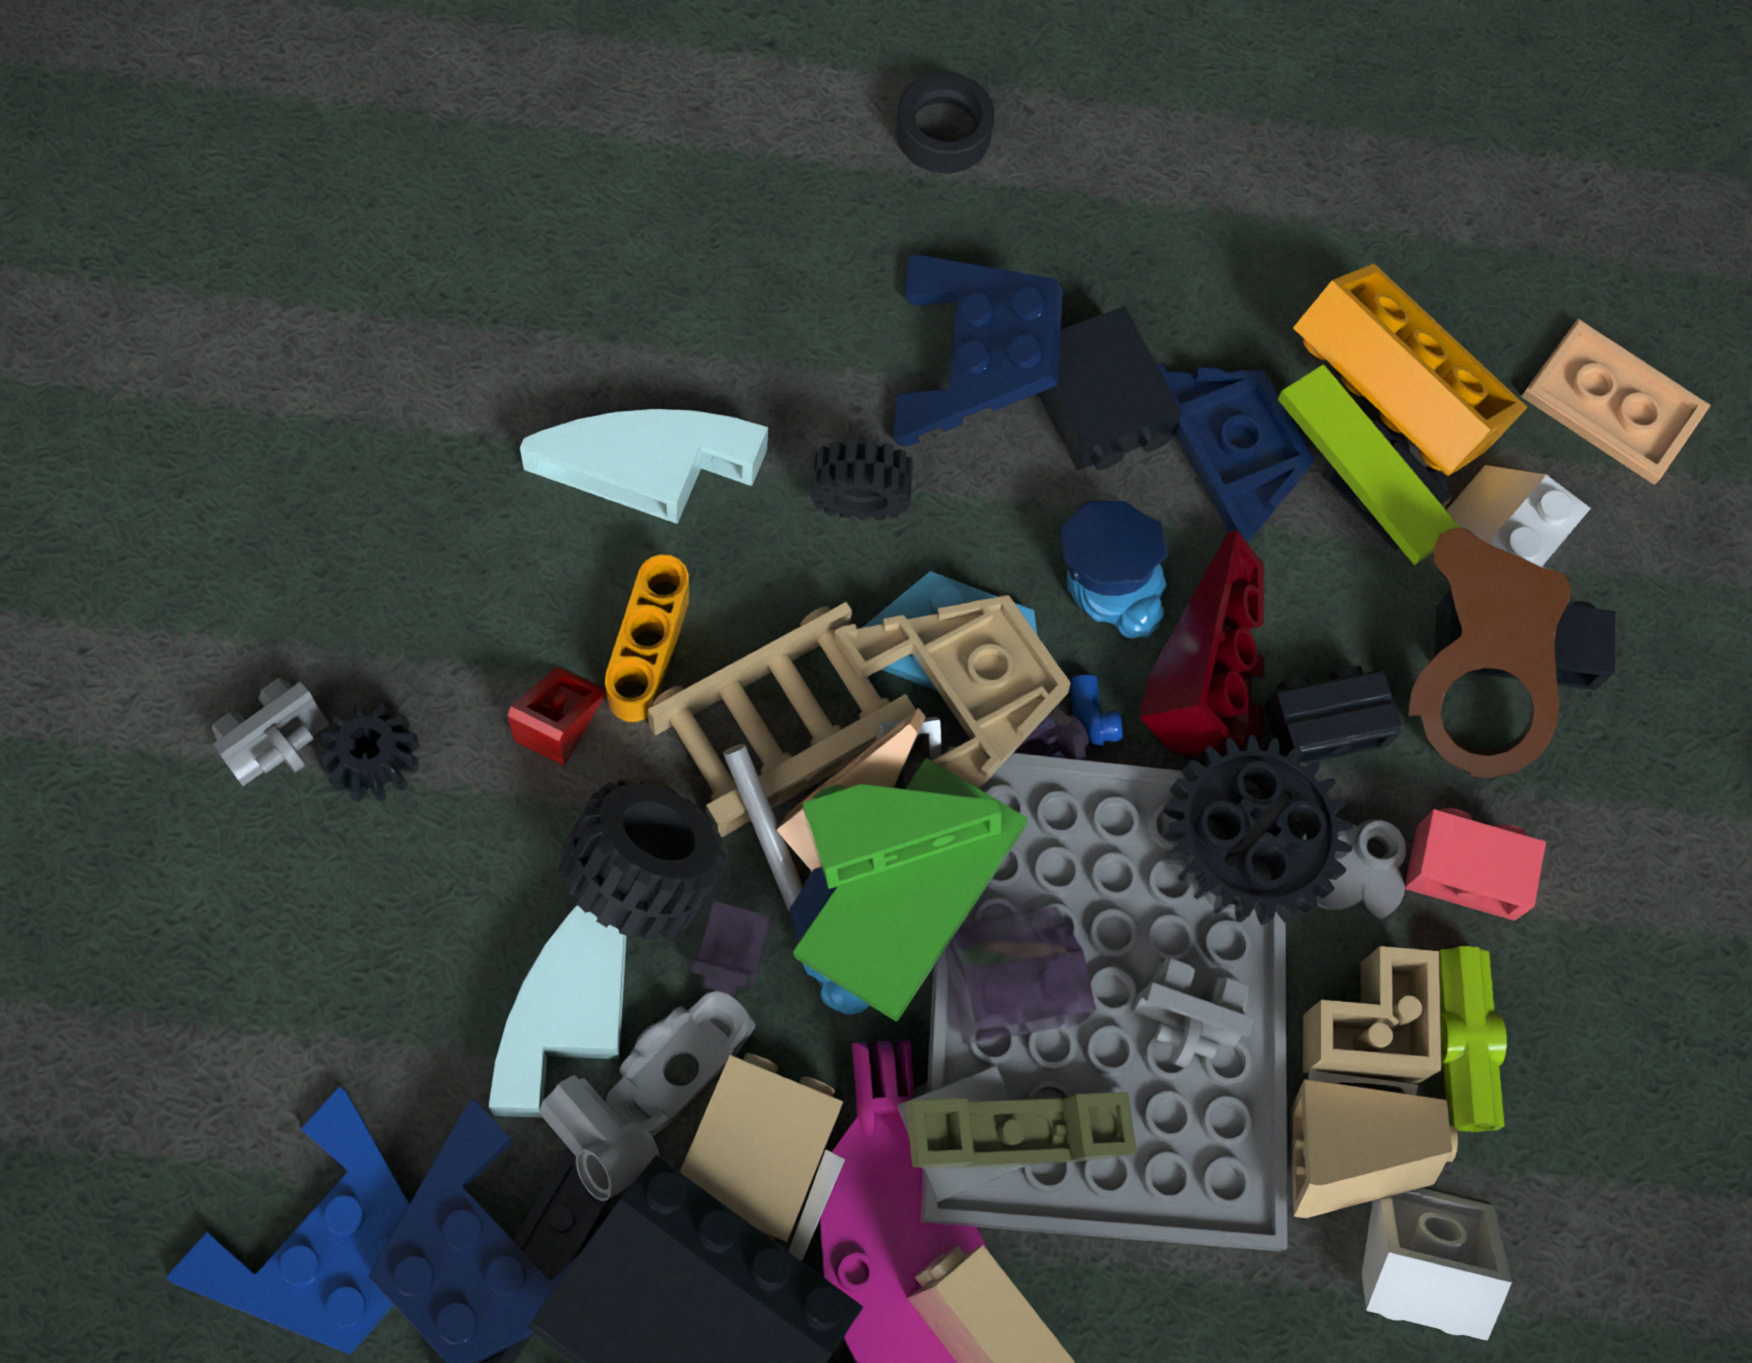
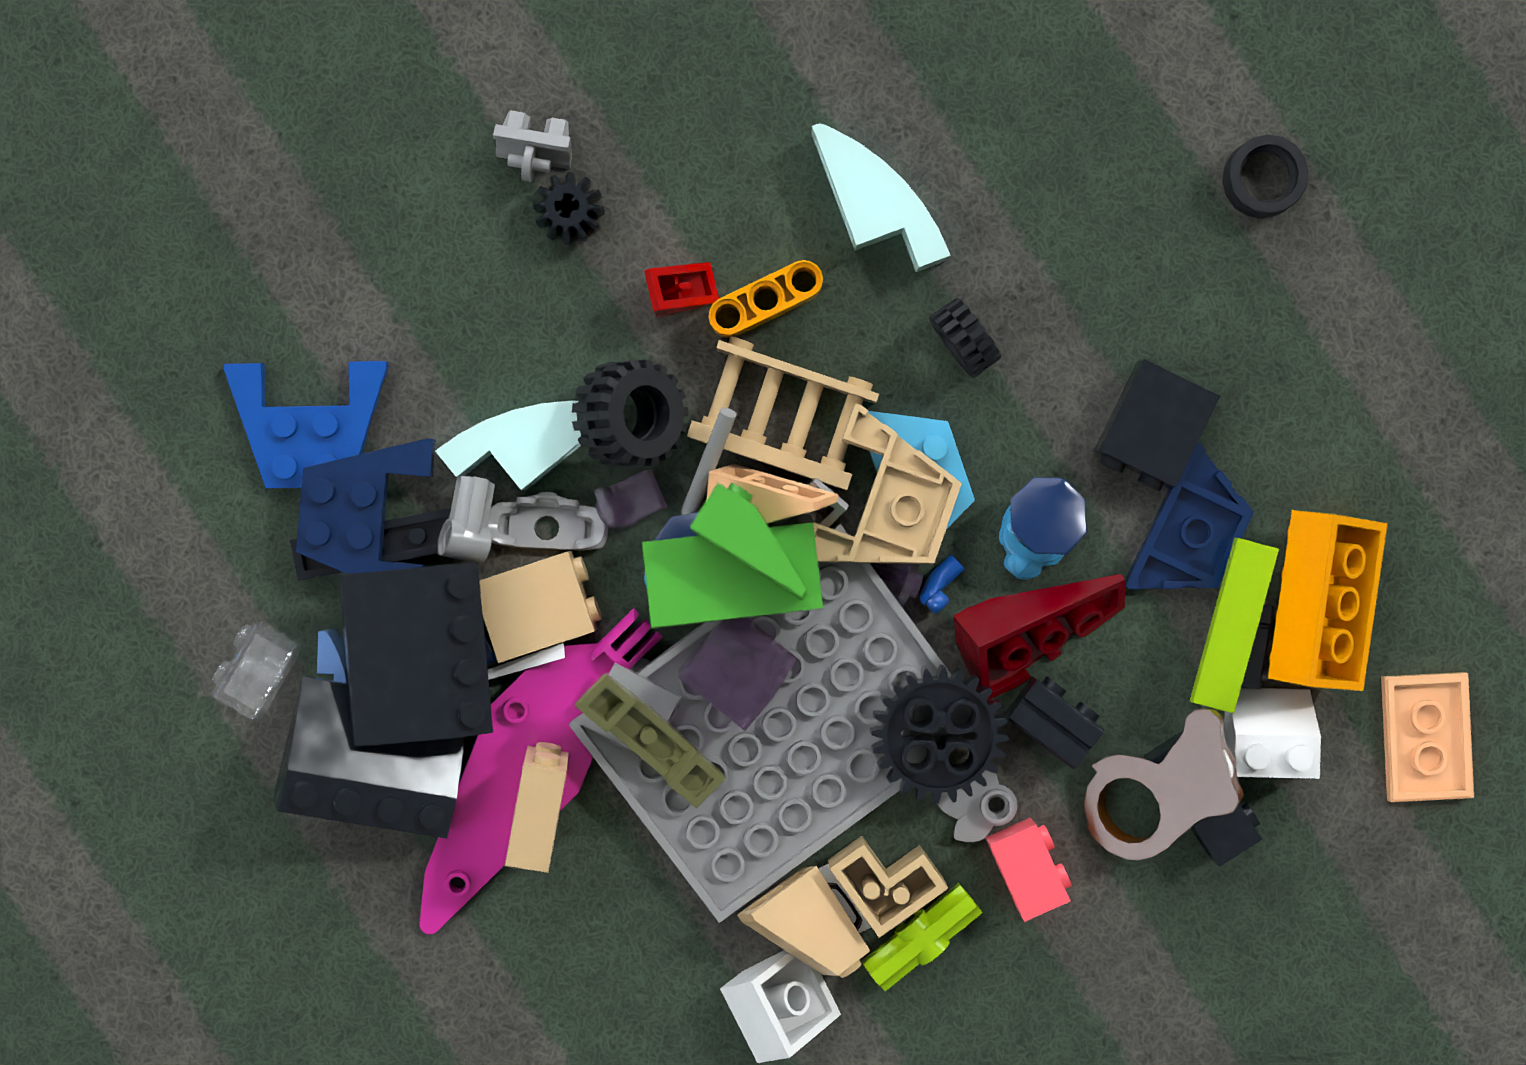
camera: 60 degrees right, 20 degrees up
(1001, 344) = (1131, 341): dark blue wing -> none
(1189, 1018) = (810, 796): light grey hips -> none

